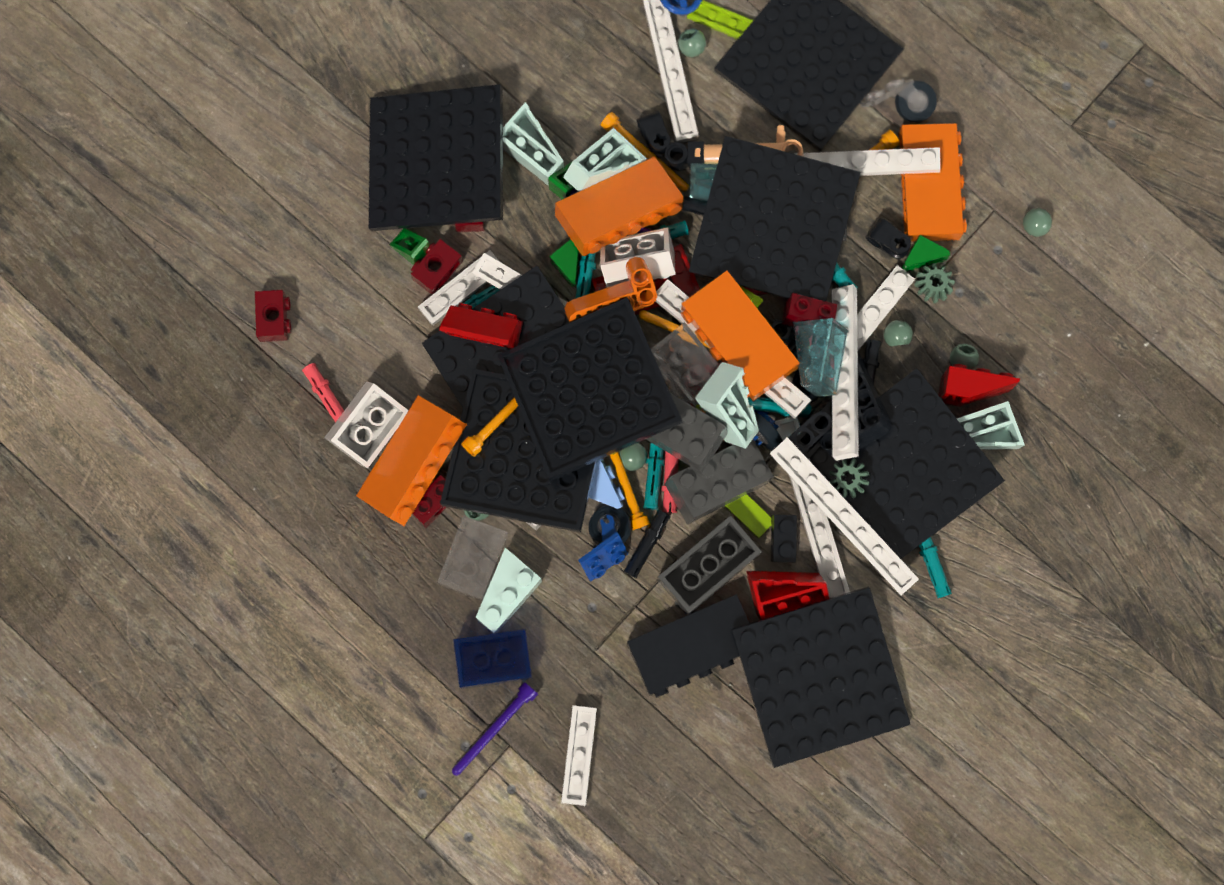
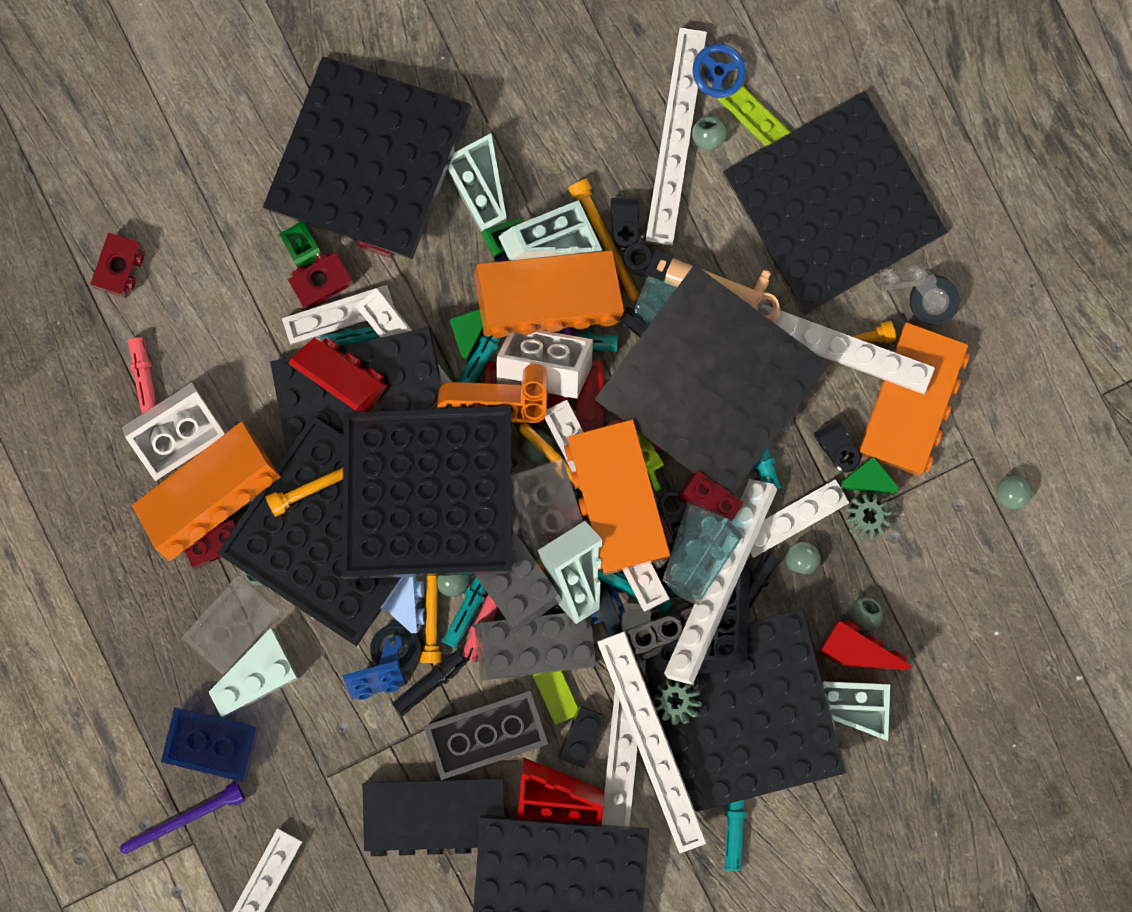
camera: 20 degrees right, 5 degrees up
(655, 332) = (532, 452): none -> sand green piece

